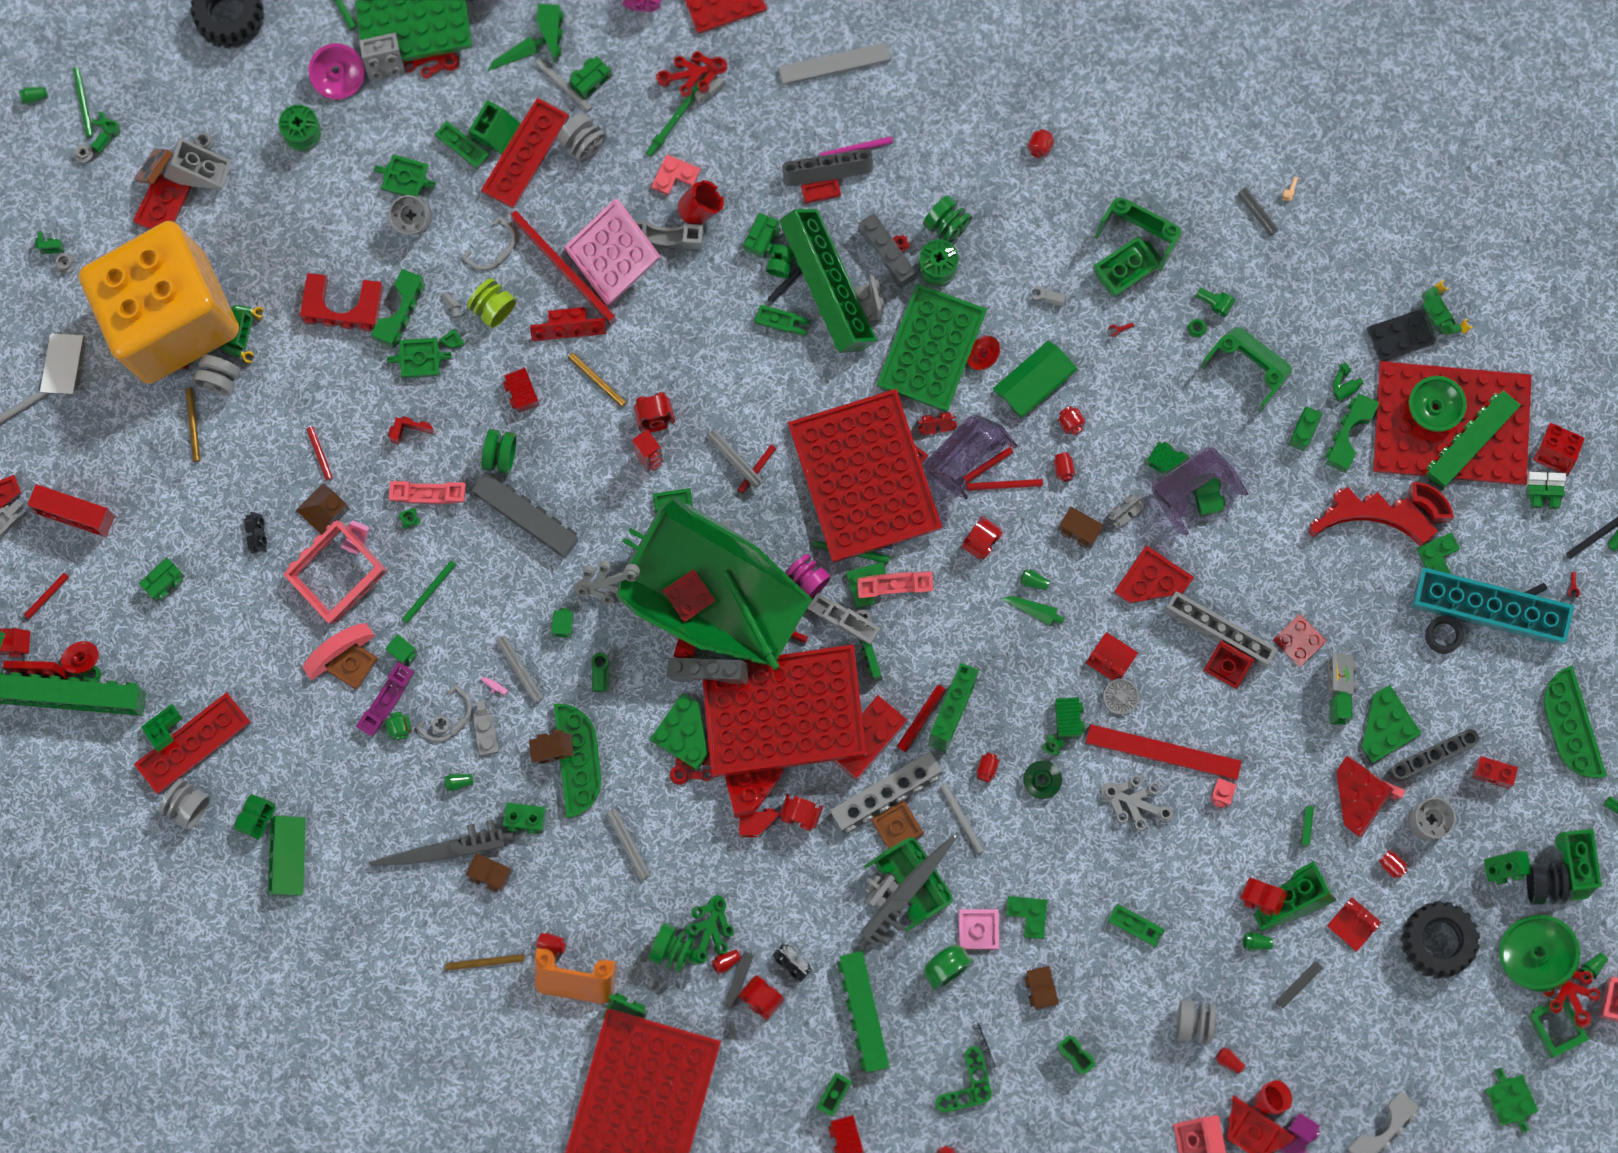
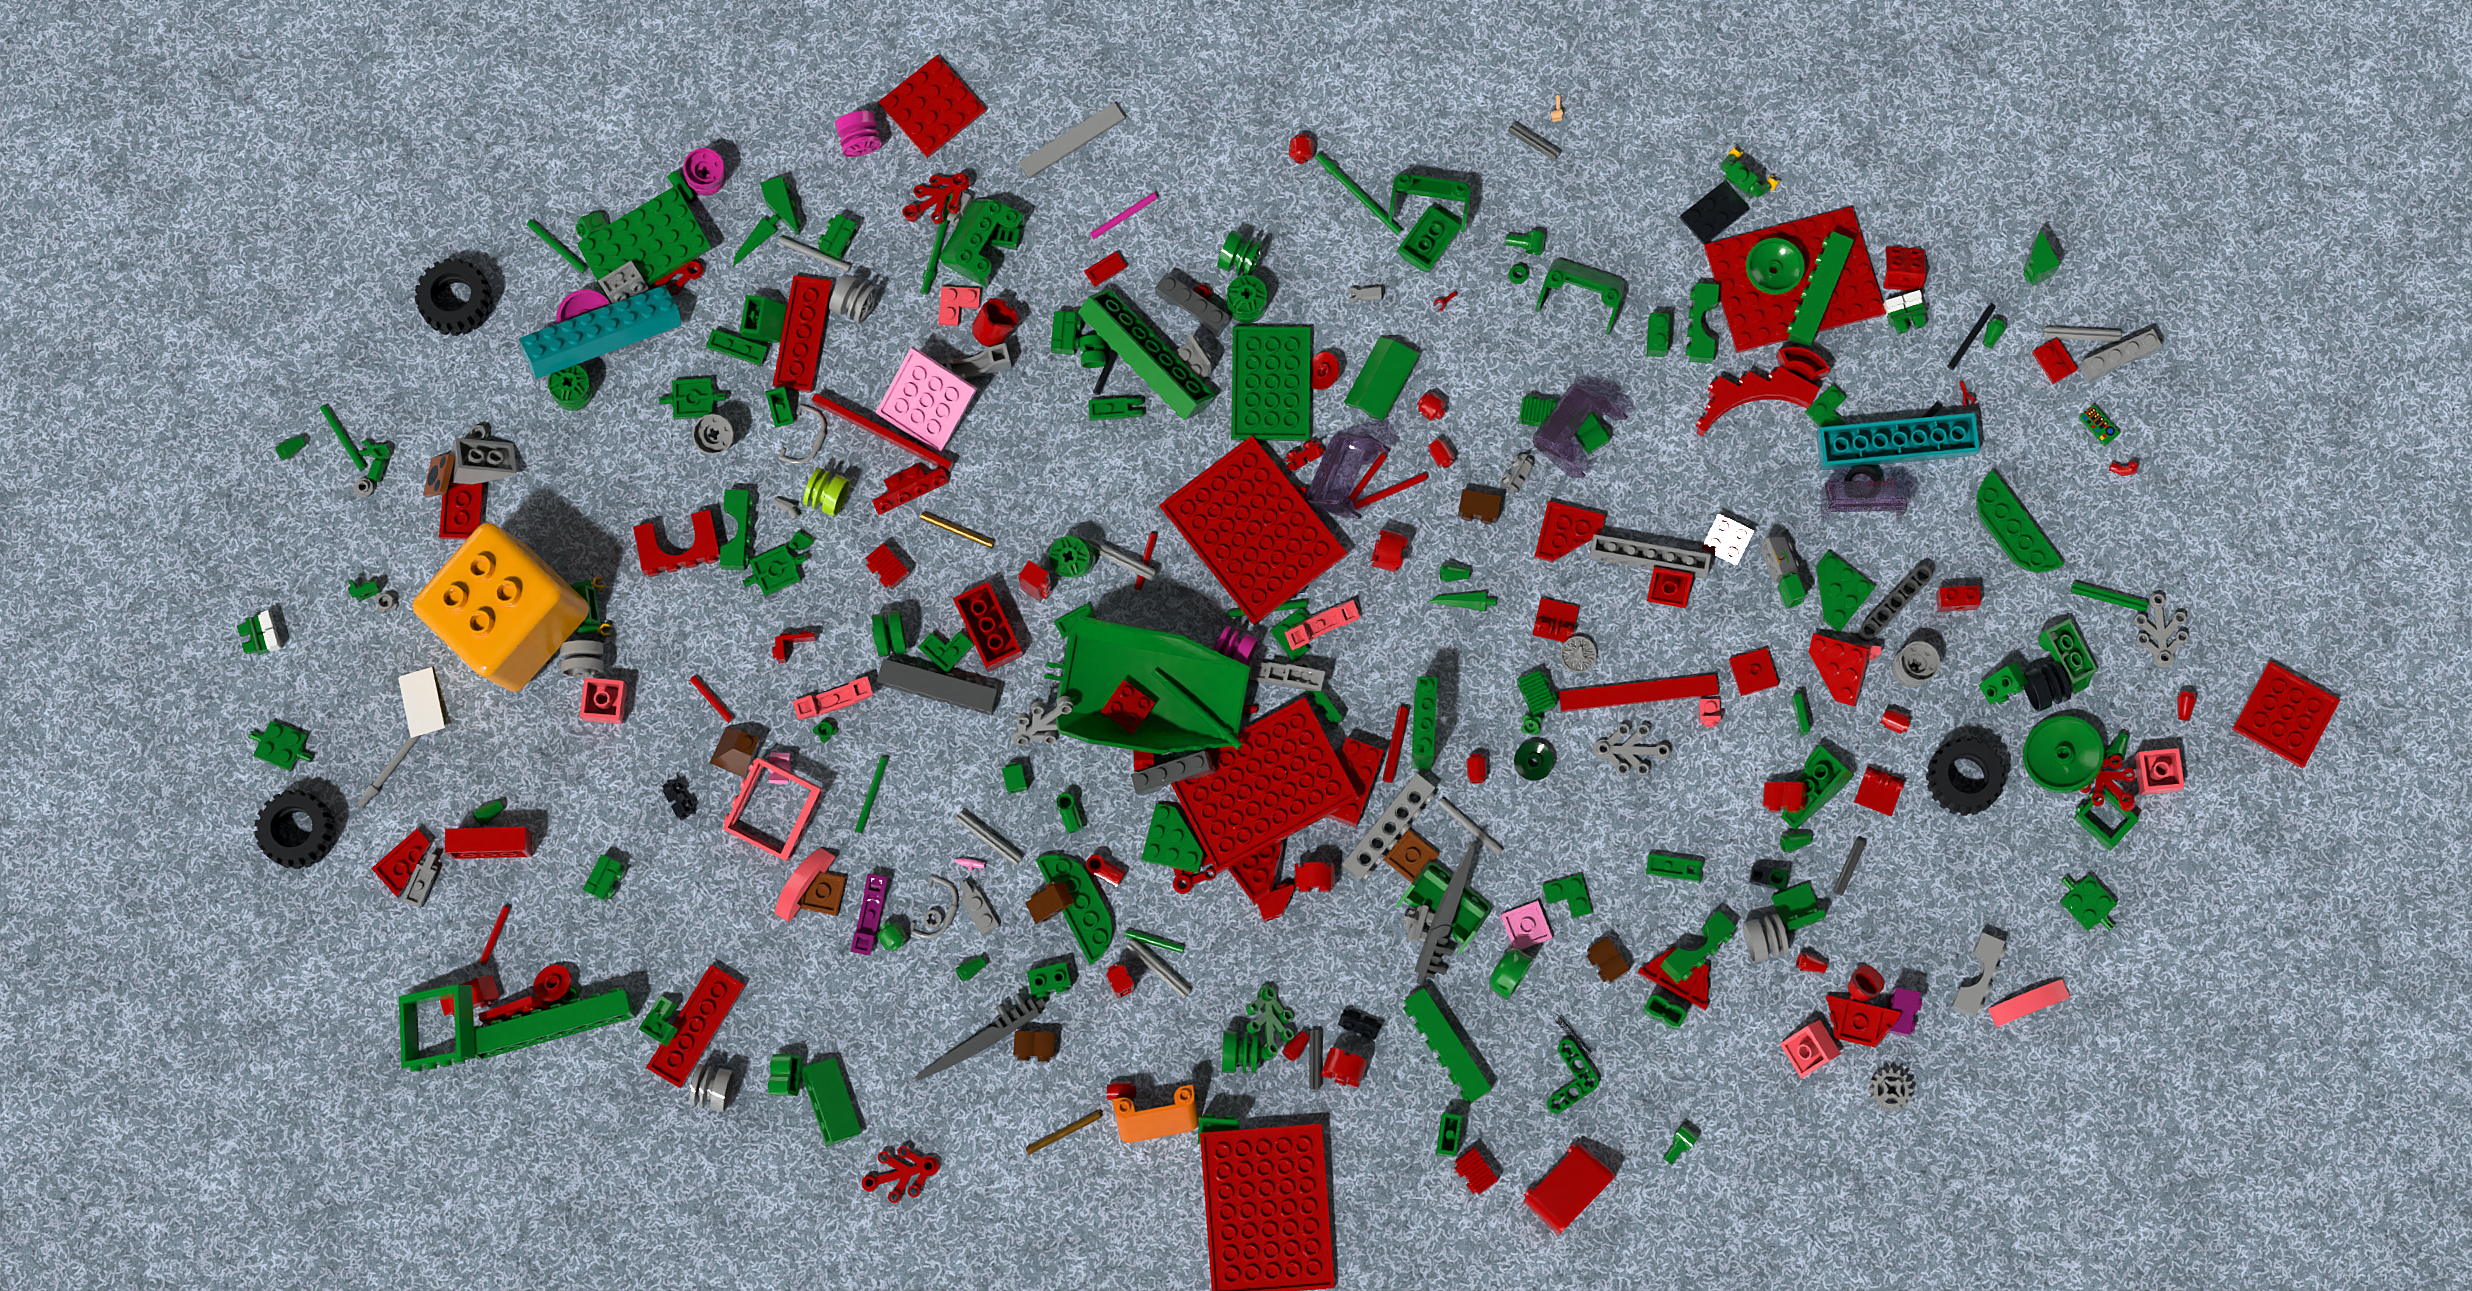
camera: 20 degrees left, 0 degrees up
(82, 483) = (487, 813): none -> green cone
(192, 424) = (575, 715): pearl gold bar -> none
(221, 420) = (603, 701): none -> coral brick
(327, 945) = (904, 1173): none -> red plant
(343, 87) = (600, 331): none -> teal brick
(401, 650) = (866, 861): green brick -> none
(479, 211) = (779, 406): none -> green slope
(543, 489) = (946, 655): none -> green plate
(587, 842) = (1119, 980): none -> red brick
(590, 477) = (987, 627): none -> red brick
(614, 737) = (1107, 871): none -> red piece
(634, 818) = (1154, 941): none -> green bar
(654, 412) = (1025, 542): red brick -> none
(700, 439) = (1080, 549): none -> green wheel
(710, 116) = (972, 233): none -> green windscreen
(745, 139) = (1005, 244): none -> green slope
(827, 167) = (1104, 244): dark grey beam -> none
(1062, 171) = (1331, 168): none -> green bar
(1103, 1026) = (1692, 990): none -> red wing
(1108, 1015) = (1682, 962): none -> green arch
(1220, 967) = (1769, 877): none -> leg
(1236, 1005) = (1797, 908): none -> green bracket
(1278, 771) = (1753, 672): none -> red plate
(1343, 391) = (1683, 282): green plant -> none
(1440, 646) = (1863, 497): none -> clear purple windscreen

